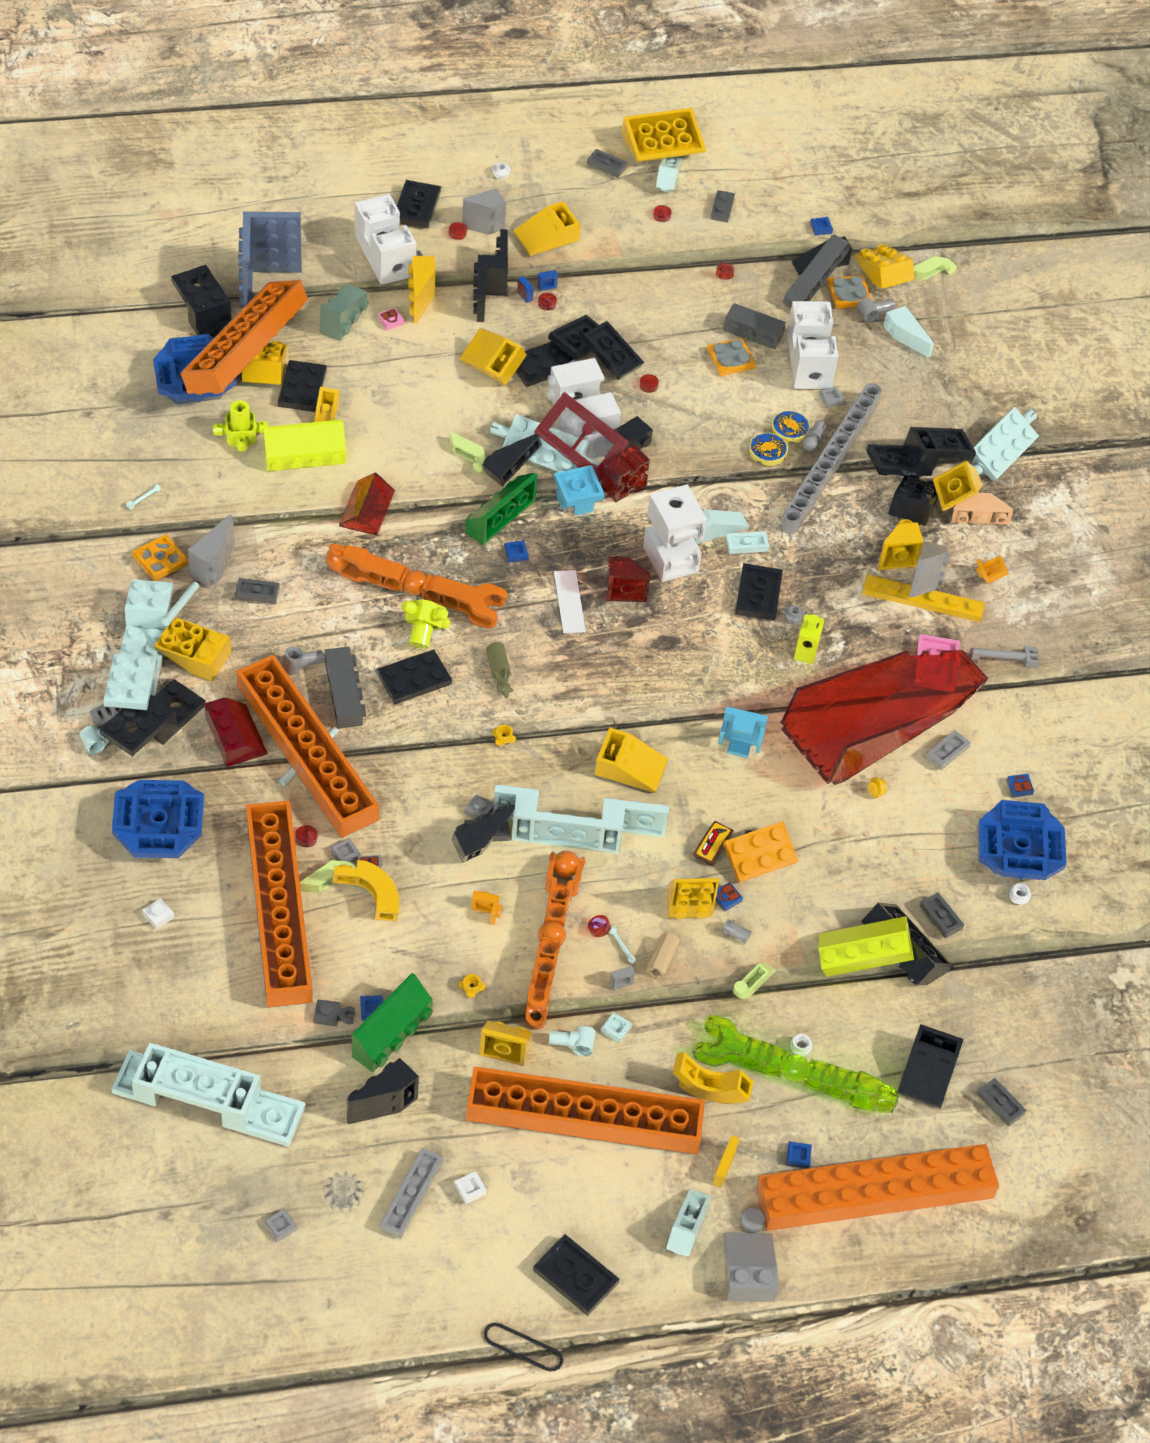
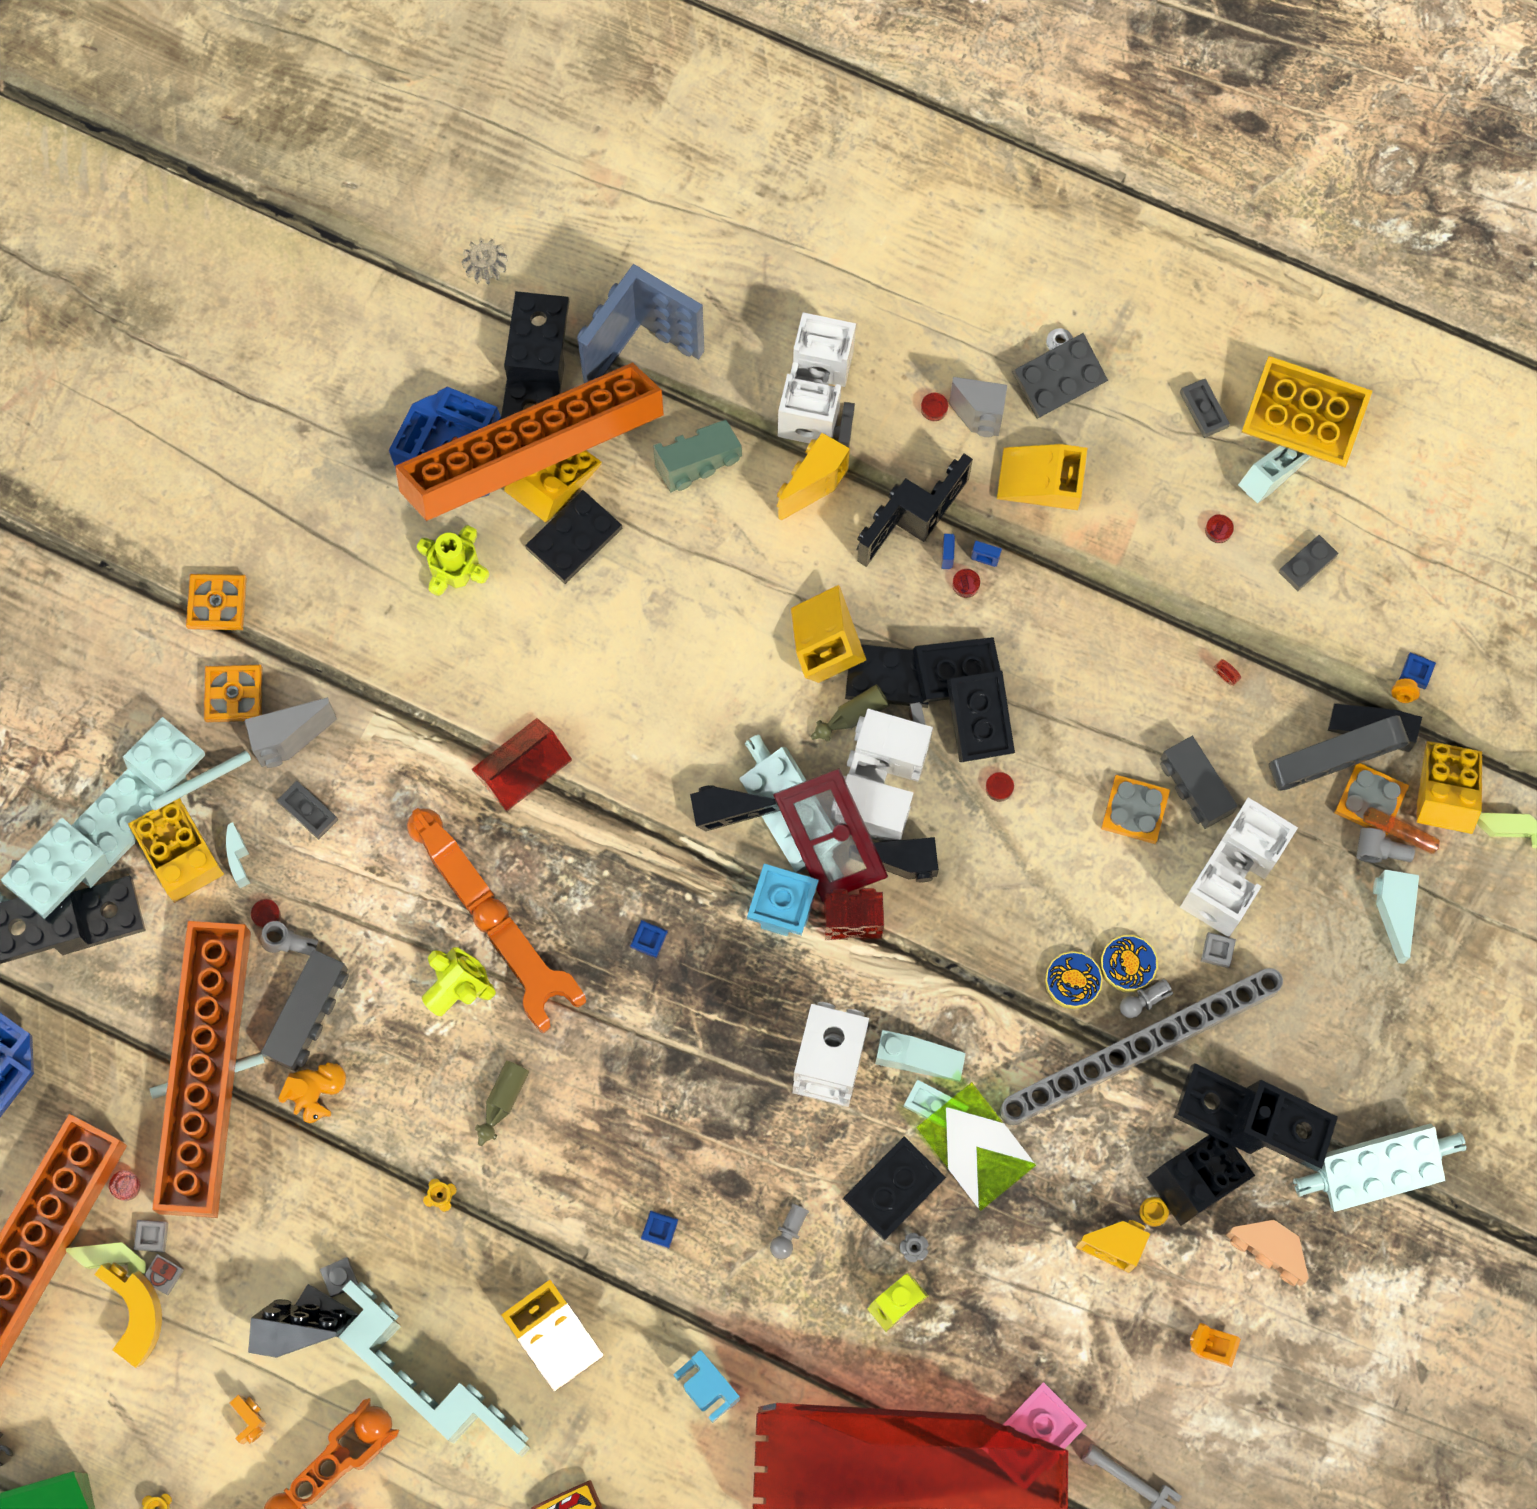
camera: 40 degrees right, 20 degrees up
(109, 518) = (216, 602): none -> light orange piece
(130, 505) = (301, 587): light aqua hinge -> none
(133, 280) = (484, 261): none -> clear gear
(234, 731) = (143, 993): dark red slope -> none
(237, 638) = (235, 850): none -> light aqua slope
(277, 651) = (265, 912): none -> clear red tile
(304, 445) = (501, 638): neon yellow slope -> none
(327, 404) = (569, 595): yellow slope -> none
(369, 1004) = (28, 1465): blue plate -> none
(379, 724) = (307, 1085): none -> light orange animal
(391, 318) = (752, 497): bright pink tile -> none
(414, 676) = (399, 1044): black plate -> none
(418, 203) = (911, 336): black plate -> none
(468, 450) = (700, 756): yellowish green piece -> none
(502, 508) = (670, 870): green slope -> none
(517, 182) = (1060, 375): none -> dark grey plate
(538, 386) = (849, 713): none -> olive wheel
(569, 601) = (660, 1051): white sticker -> none
(626, 580) = (732, 1073): clear red slope -> none
(645, 683) = (659, 1229): none -> blue tile
(719, 643) = (781, 1246): none -> light grey pin
(785, 548) = (976, 1146): none -> sticker
(823, 234) = (1405, 690): none -> light orange plate
(876, 293) = (1401, 830): none -> clear orange axle
(929, 568) = (1118, 1305): light grey slope -> none
(932, 601) = (1097, 1328): yellow plate -> none
(957, 485) = (1259, 1203): yellow slope -> none

